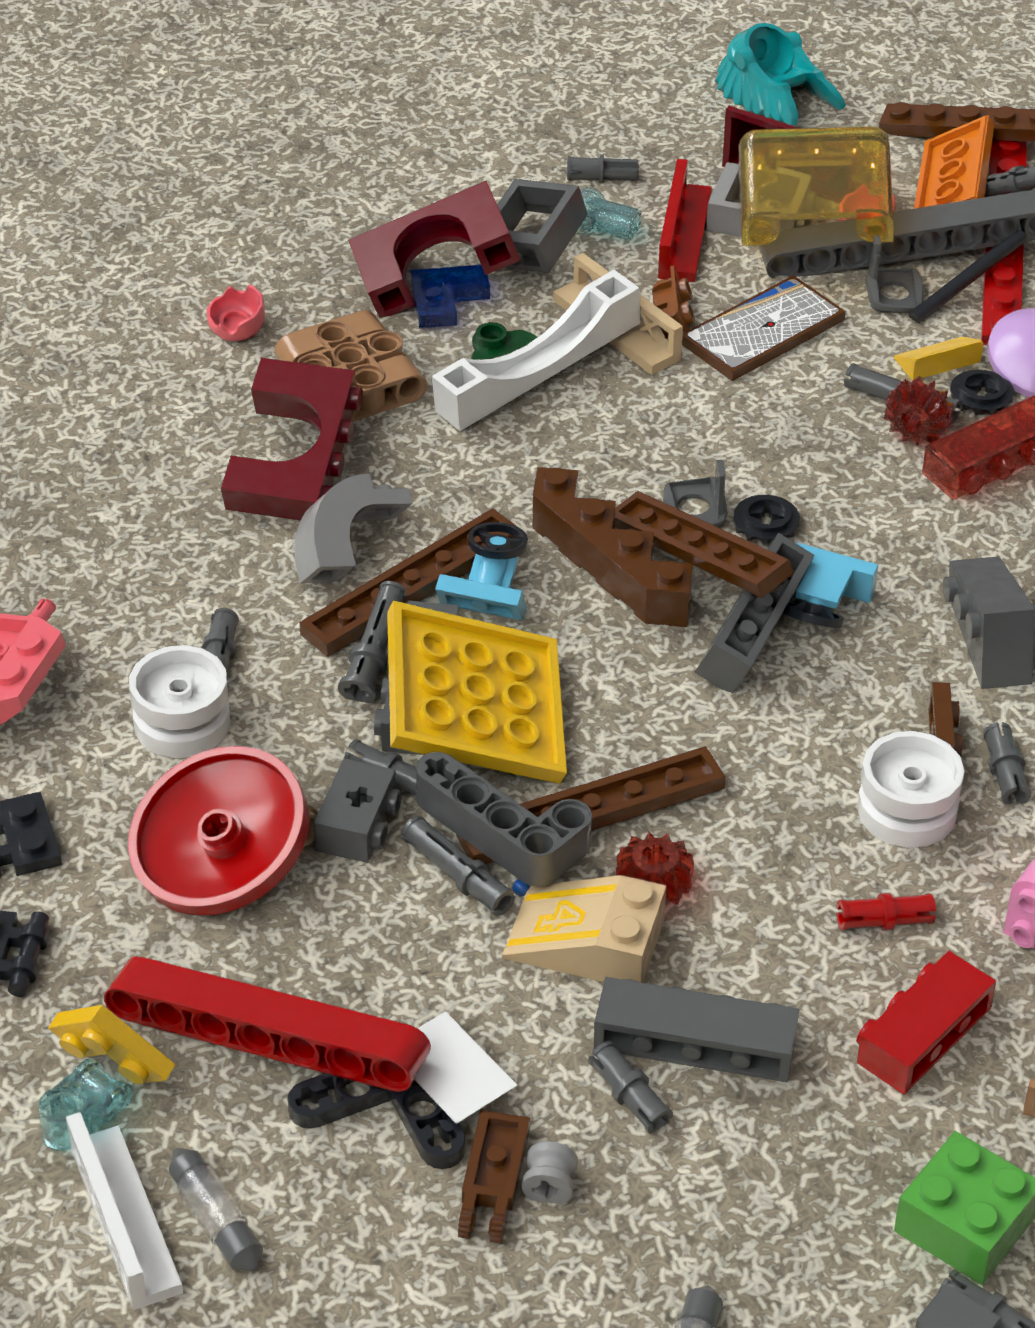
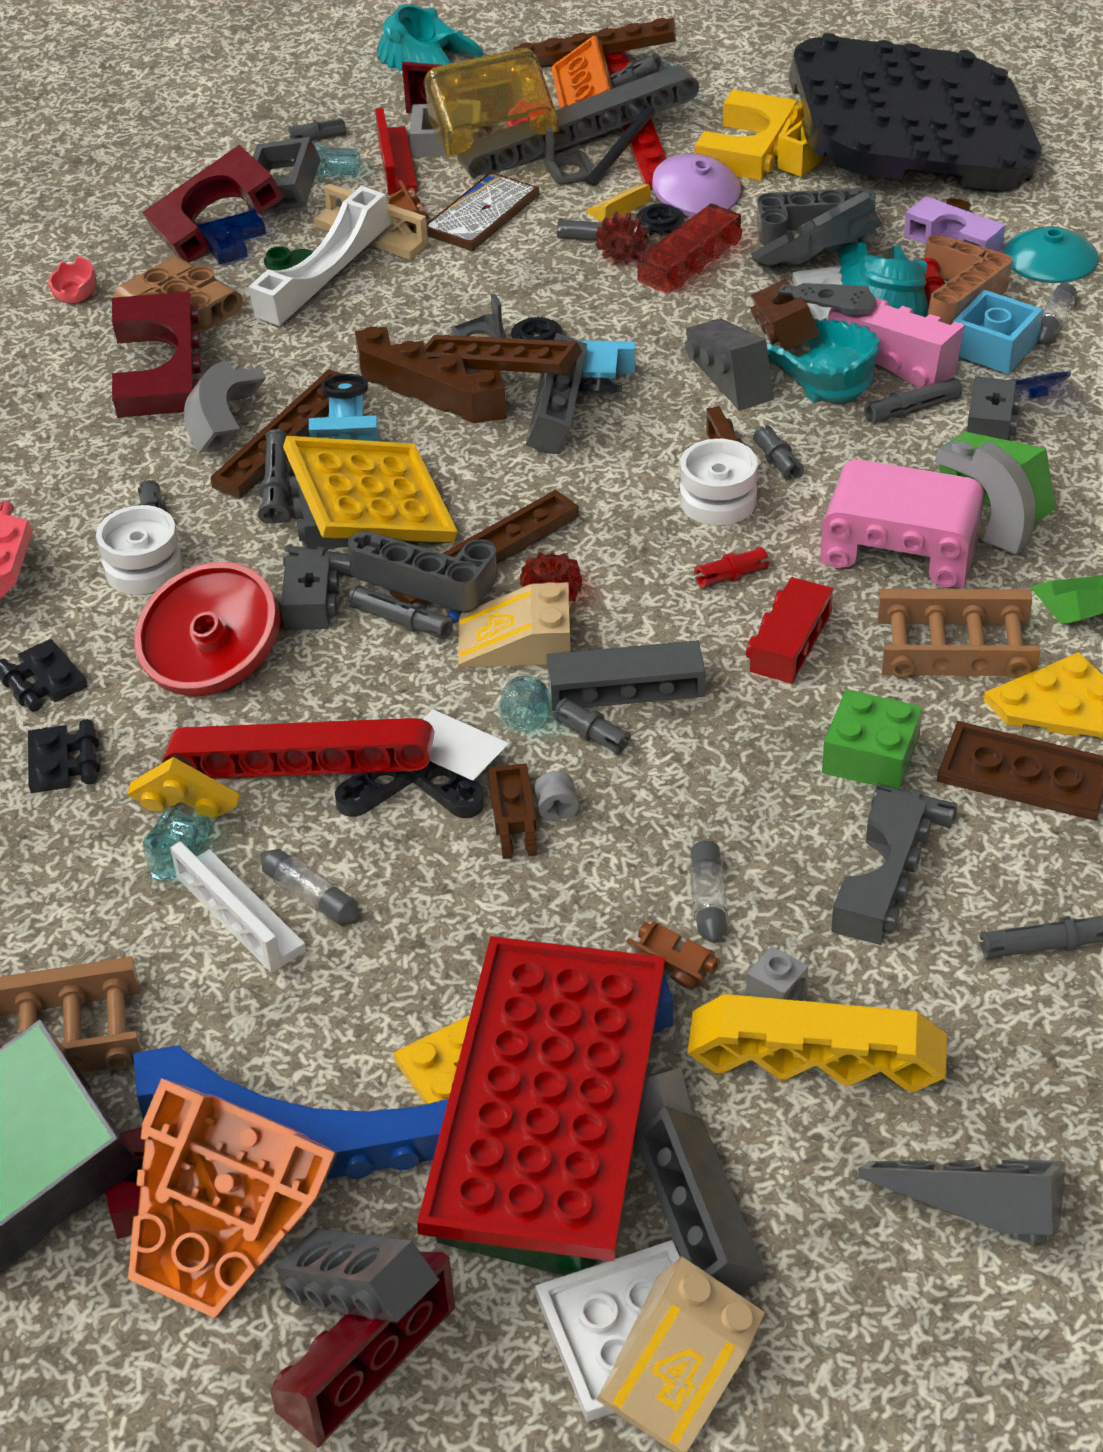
camera: 15 degrees left, 0 degrees up
(558, 1034) = (524, 704): none -> clear light blue head

